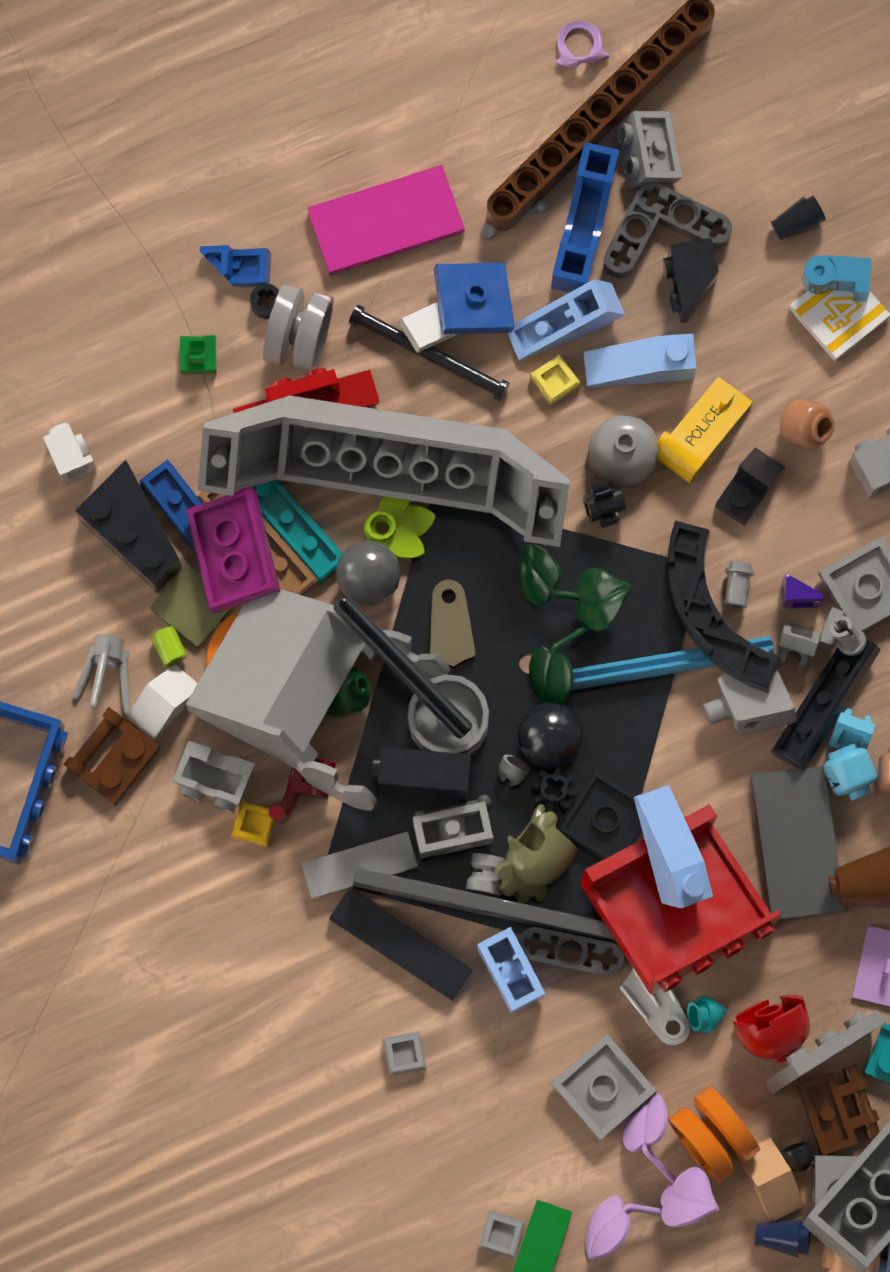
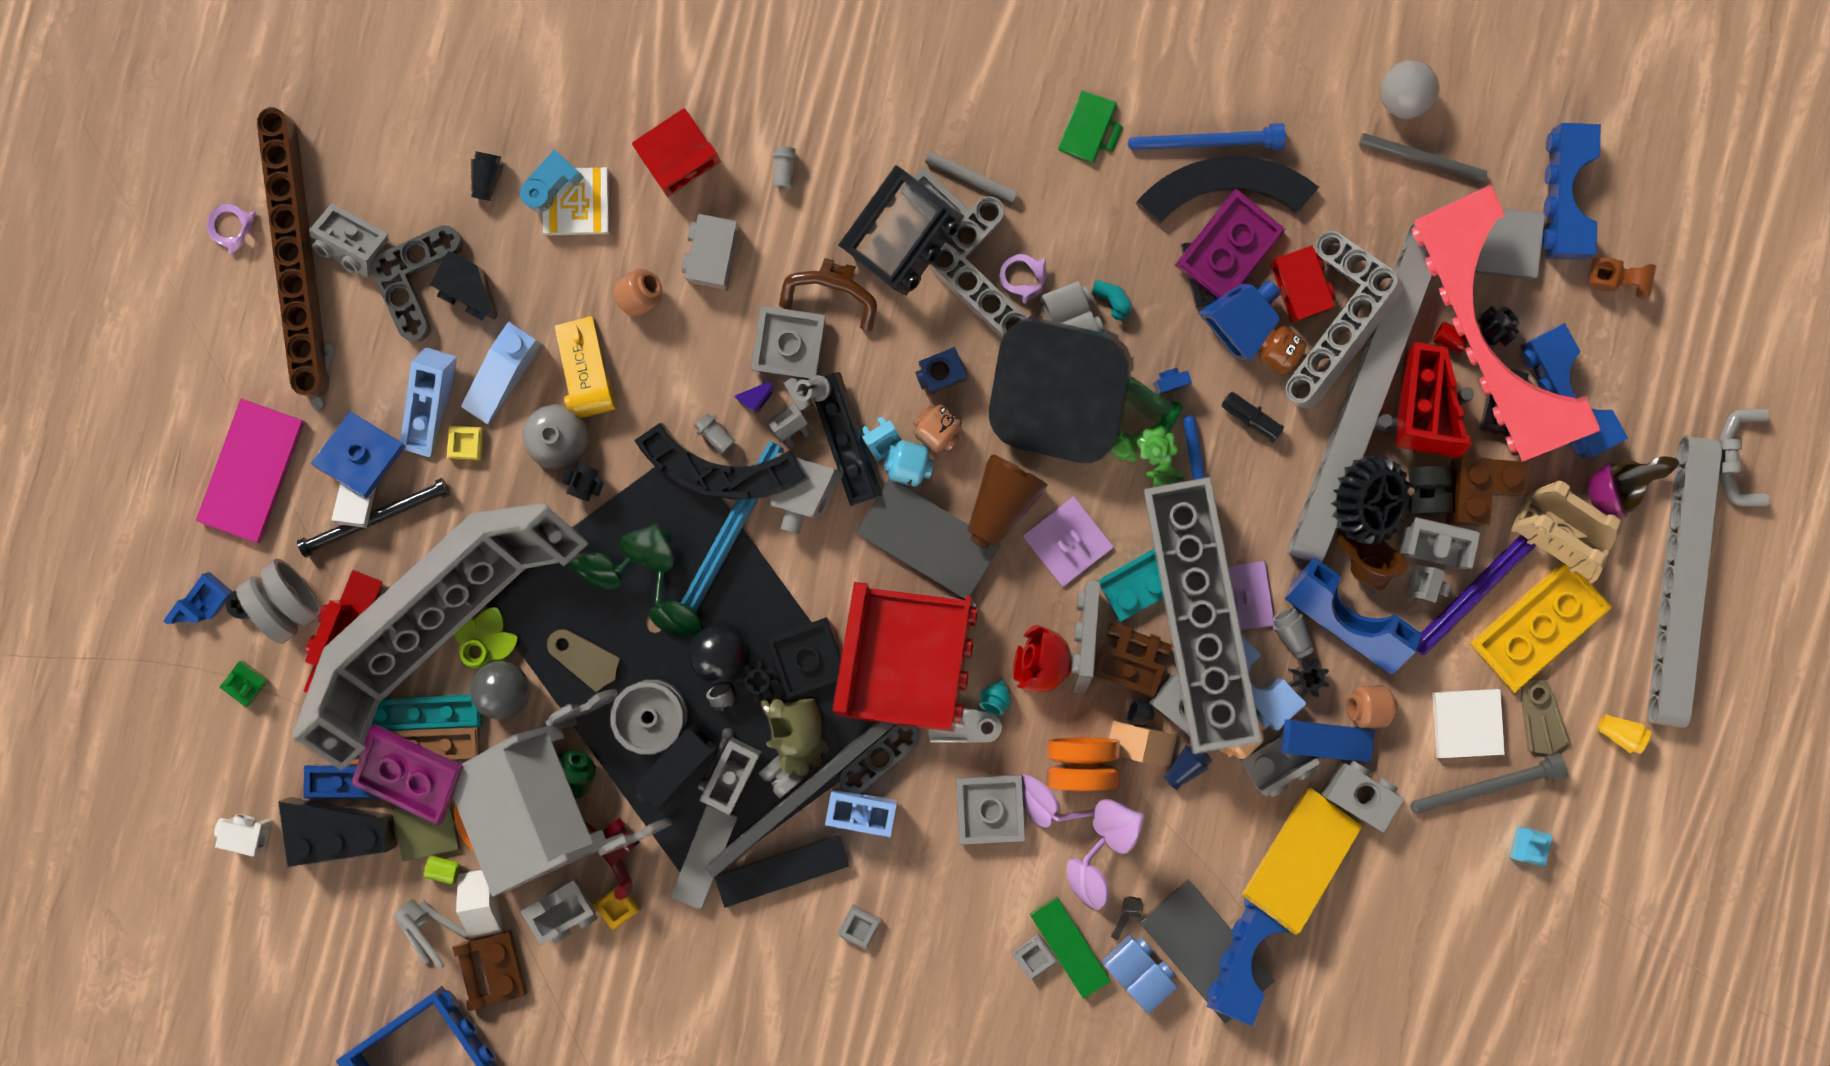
camera: 55 degrees left, 10 degrees up
(402, 666) = (585, 728): black axle -> none
(585, 217) = (356, 318): blue arch -> none
(672, 850) = (866, 637): light blue slope -> none
(749, 486) = (650, 367): black slope -> none

